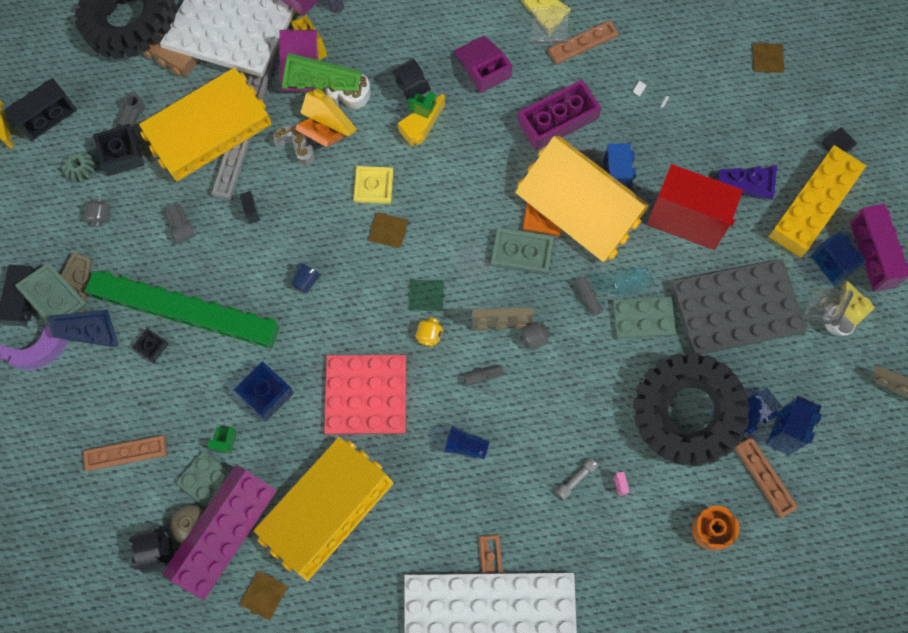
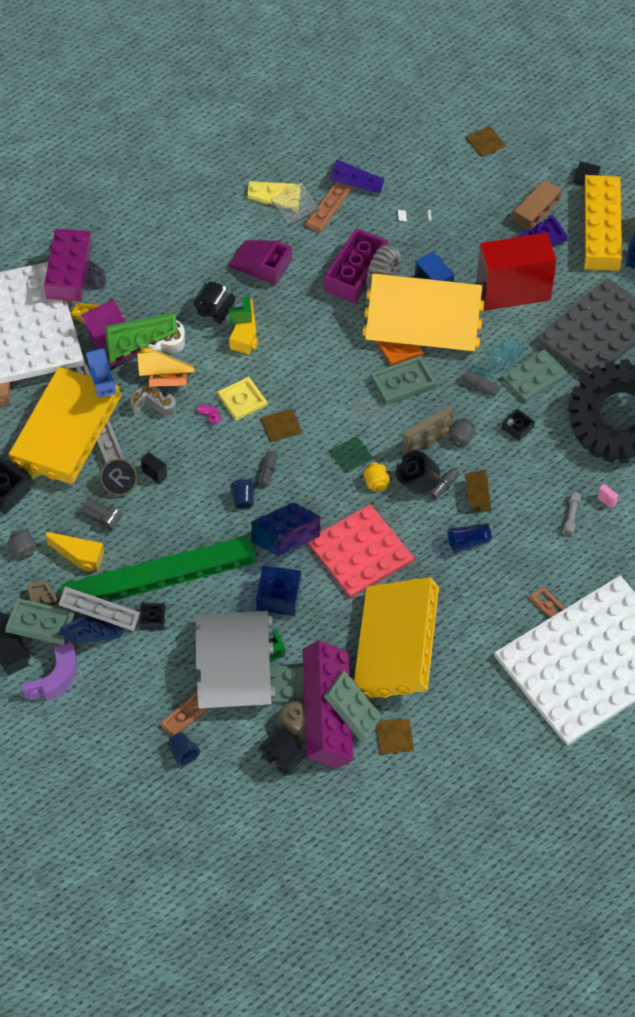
camera: 35 degrees left, 15 degrees down
(80, 489) = (183, 749): none -> dark blue piece
(106, 313) = (99, 608): none -> light grey plate
(135, 249) = (80, 552): none -> yellow slope
(175, 433) = (234, 659): none -> light grey panel
(215, 198) = (118, 477): none -> black tile
(236, 550) = (352, 706): none -> sand green plate
(257, 95) = (100, 372): none -> blue arch
(307, 337) = (285, 528): none -> clear blue brick
(338, 182) = (211, 412): none -> dark pink arm
(344, 266) = (267, 468): none -> dark grey axle
(463, 353) = (418, 472): none -> black brick
(507, 403) = (478, 491): none -> pearl gold hinge
(580, 130) = (384, 262): none -> light grey gear
(592, 358) = (518, 424): none -> black piece
(622, 28) = (356, 177): none -> dark purple wing
(768, 148) = (537, 205): none -> medium nougat brick

